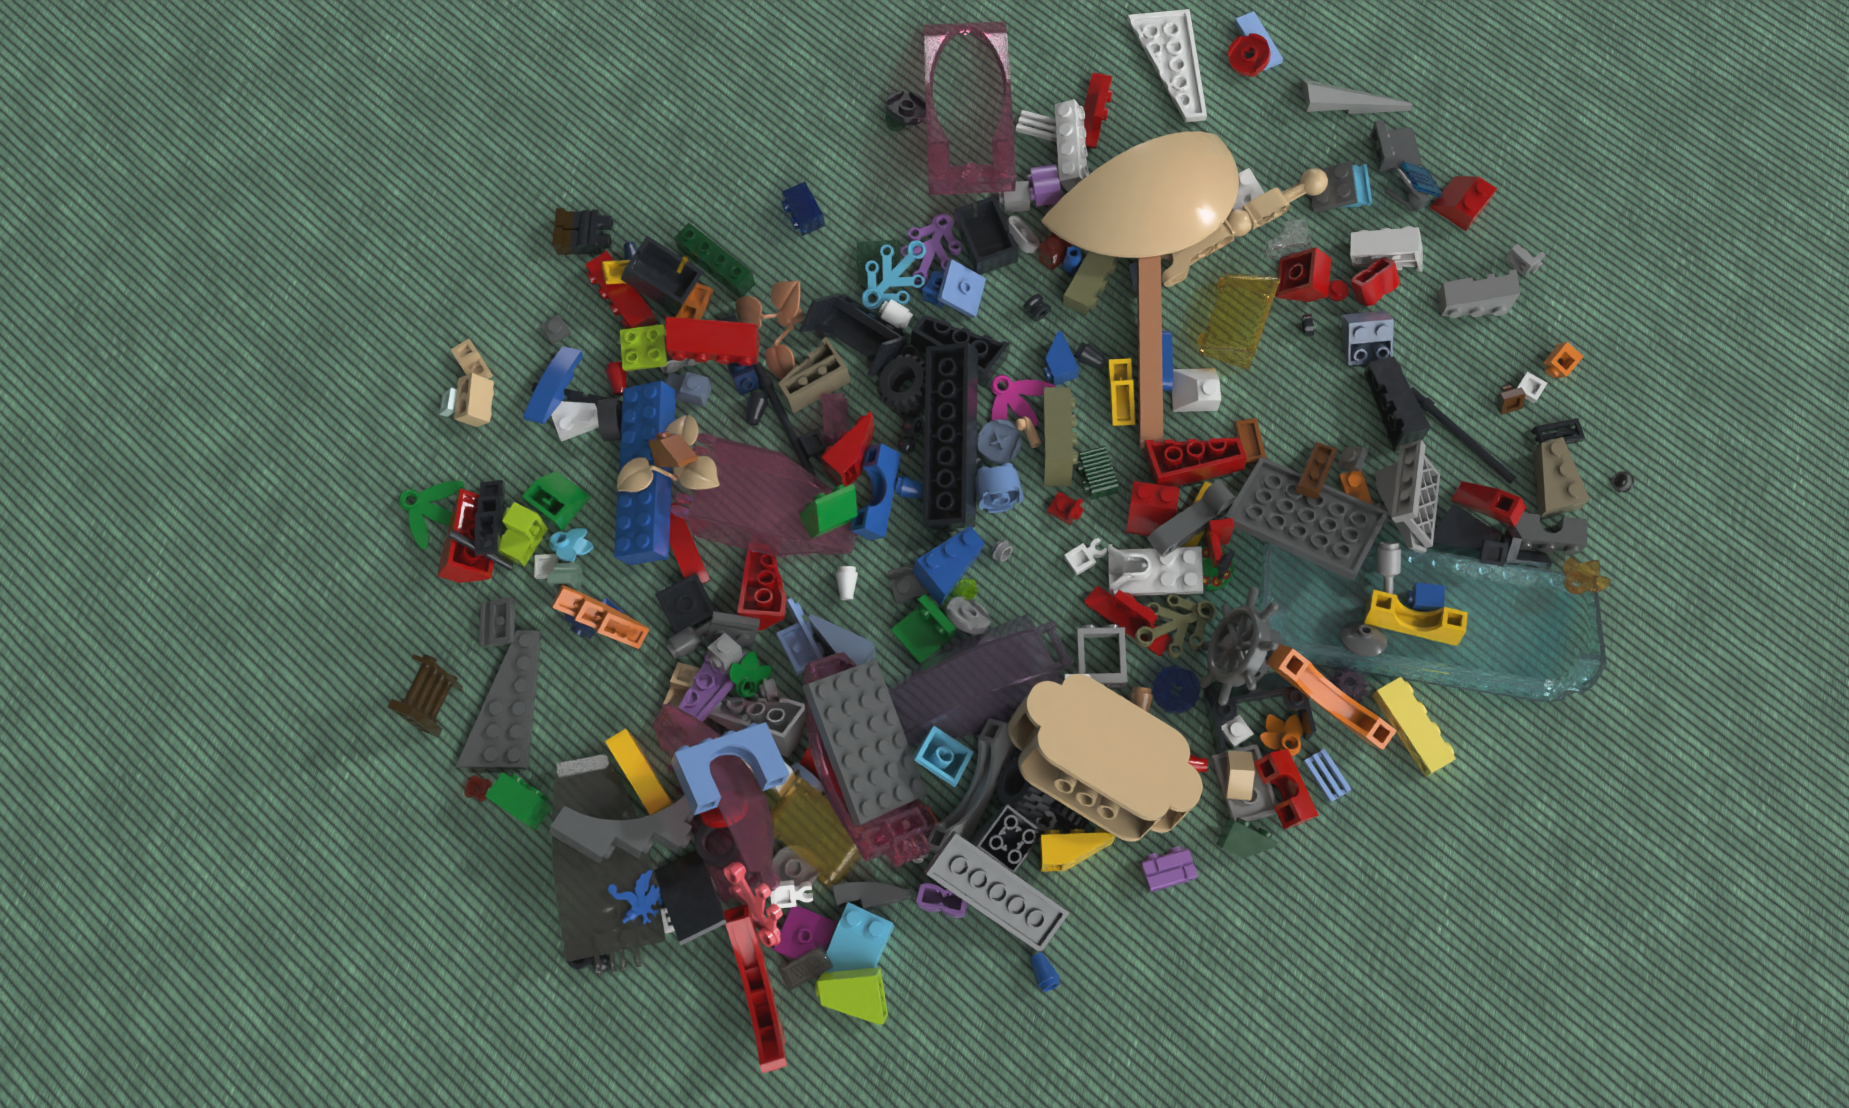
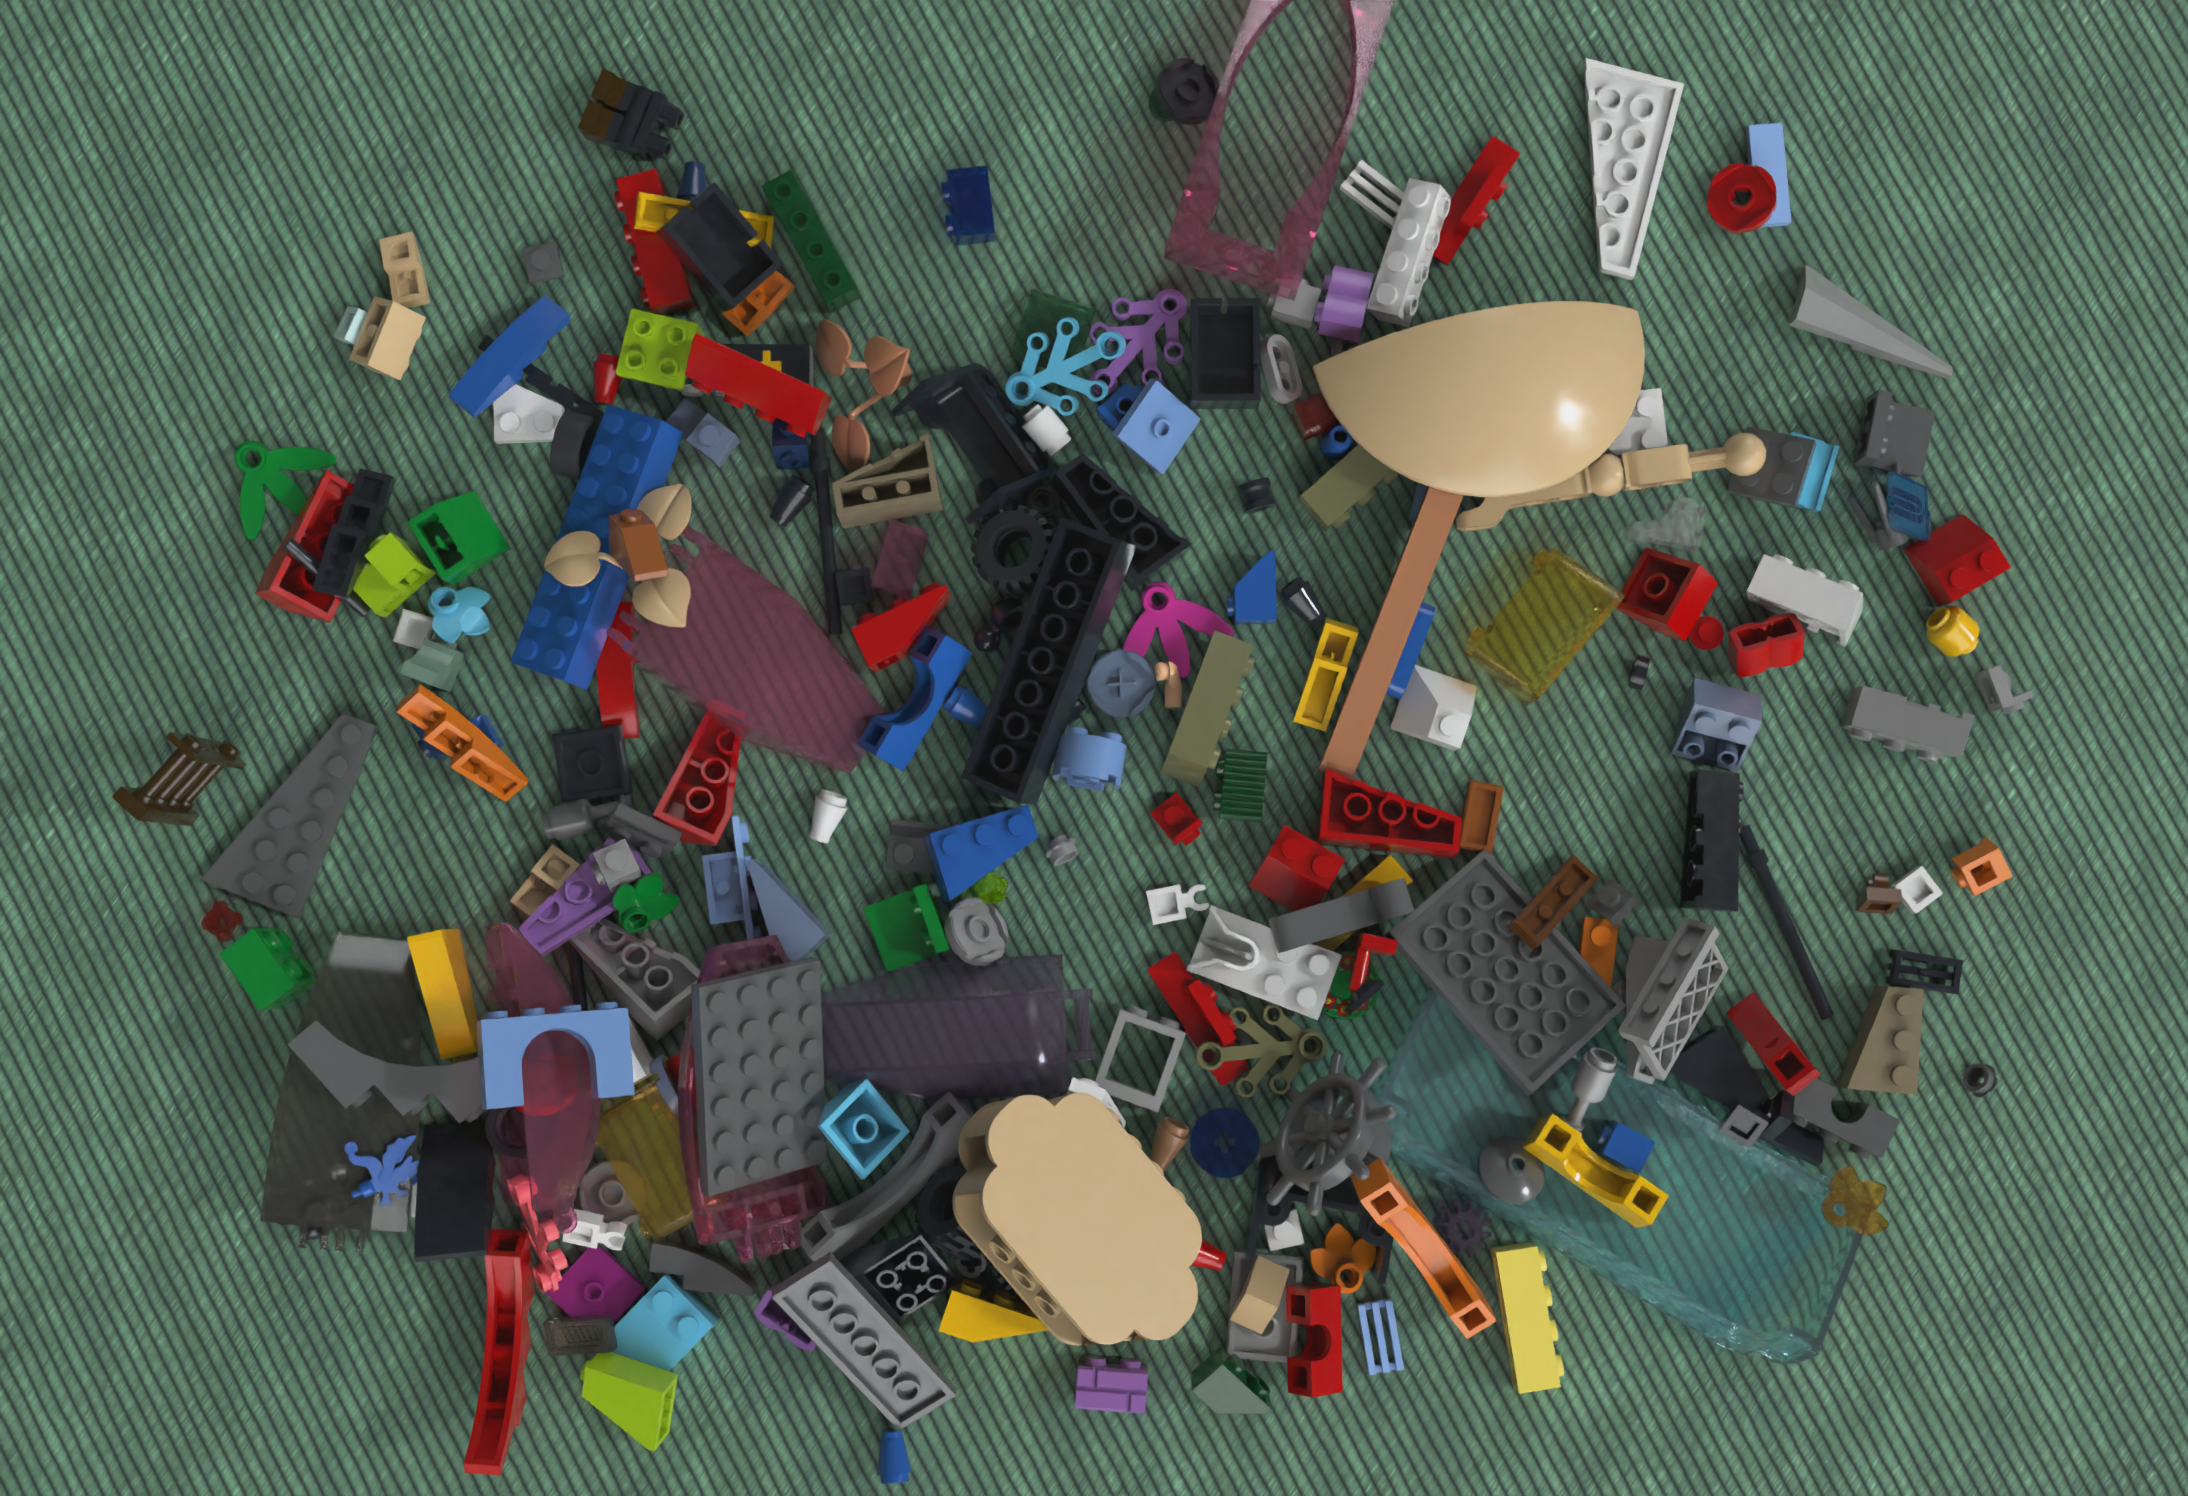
camera: 15 degrees right, 15 degrees up
(497, 622) = (319, 691): dark grey plate -> none
(768, 689) = (665, 930): light grey plate -> none
(830, 510) = (833, 715): green slope -> none
(1480, 238) = (1952, 631): none -> yellow head

